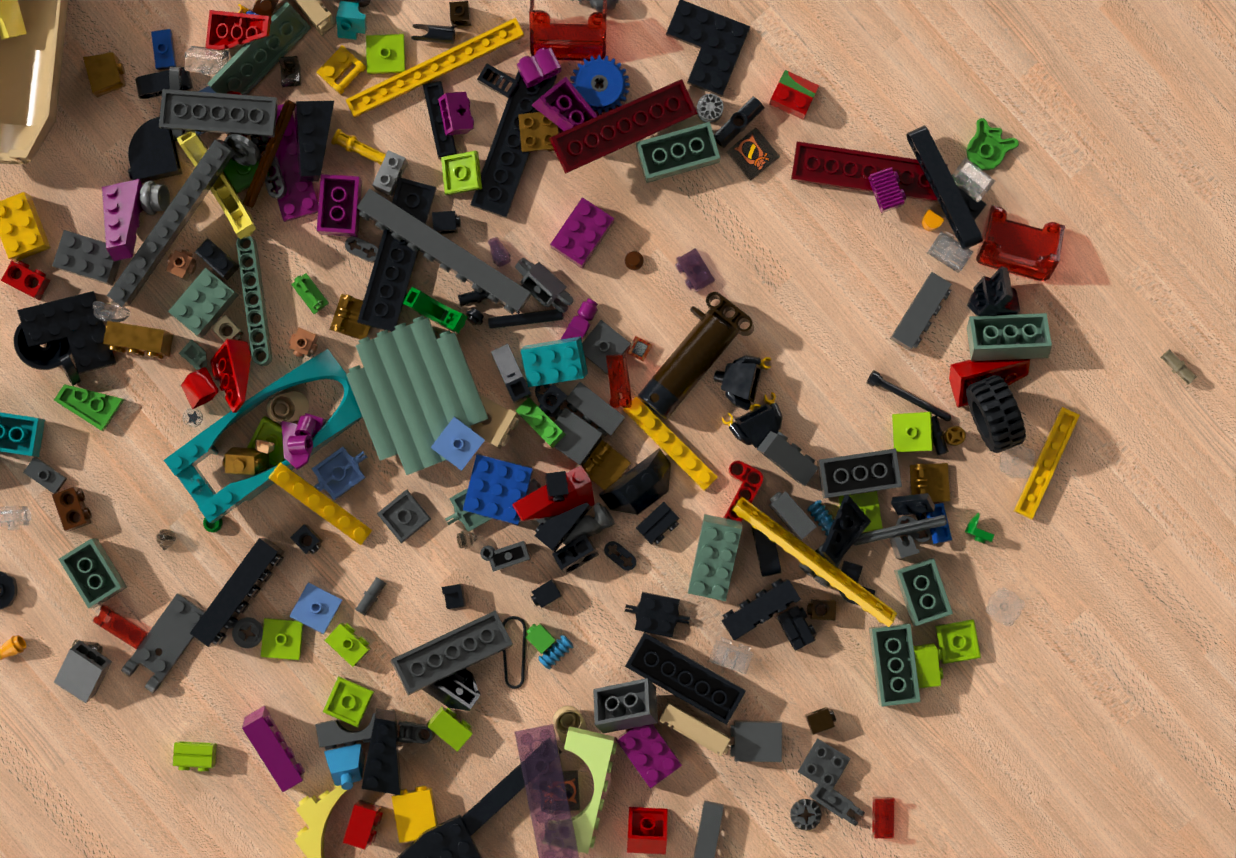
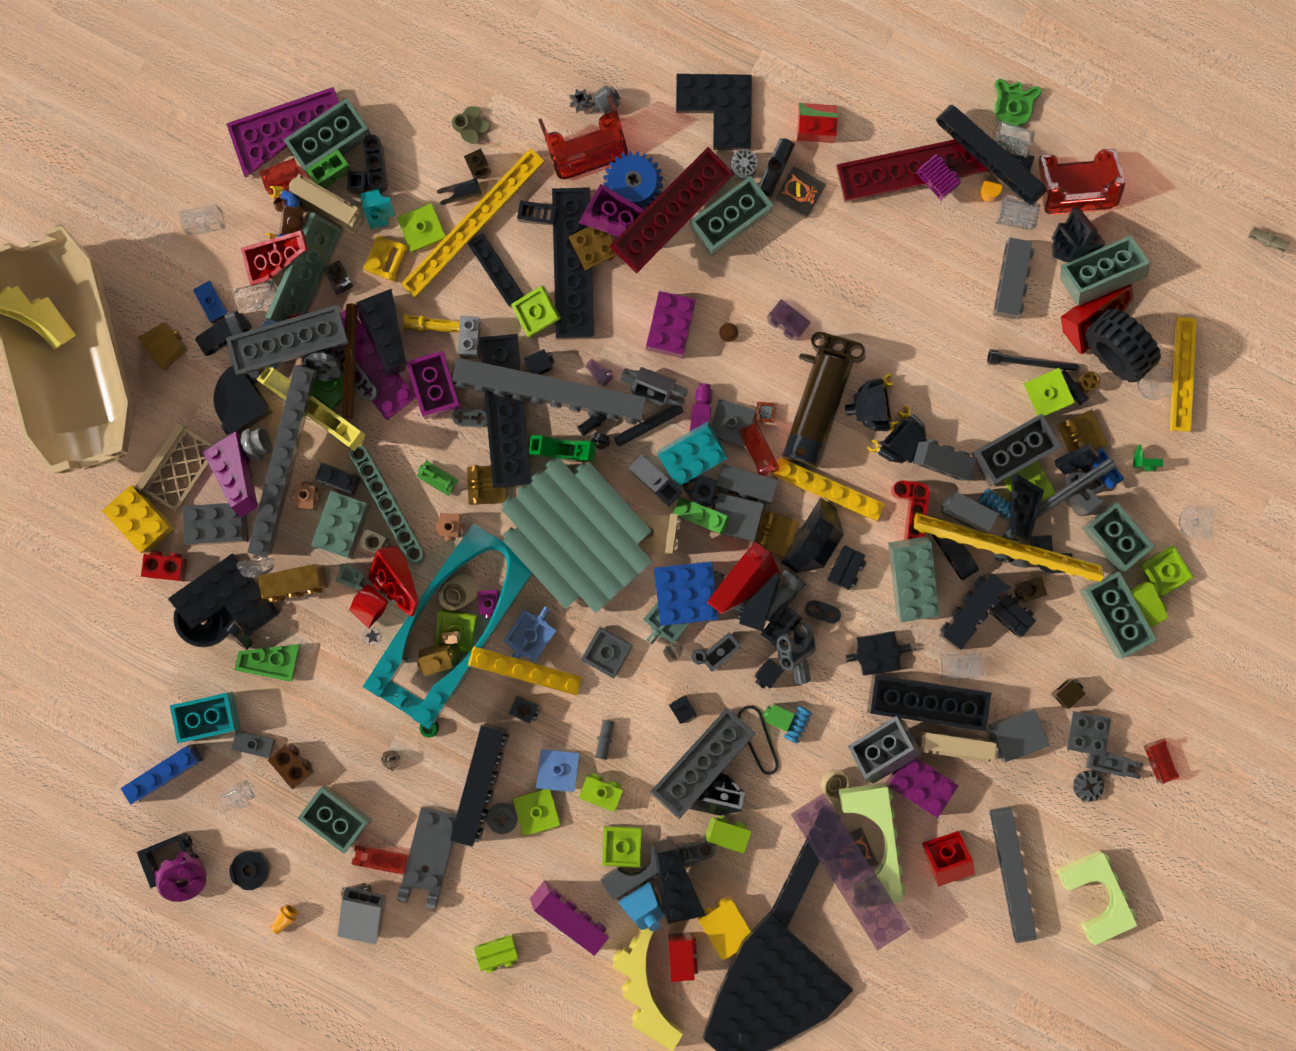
camera: 25 degrees left, 0 degrees up
(63, 177) = (161, 459): none -> tan fence
(298, 441) = (482, 620): magenta panel -> none
(456, 113) = (509, 257): magenta brick -> none
(457, 443) = (633, 564): medium blue plate -> none
(538, 67) = (571, 185): magenta brick -> none
(557, 486) = (742, 569): black brick -> none
(578, 584) = (796, 653): none -> dark grey connector

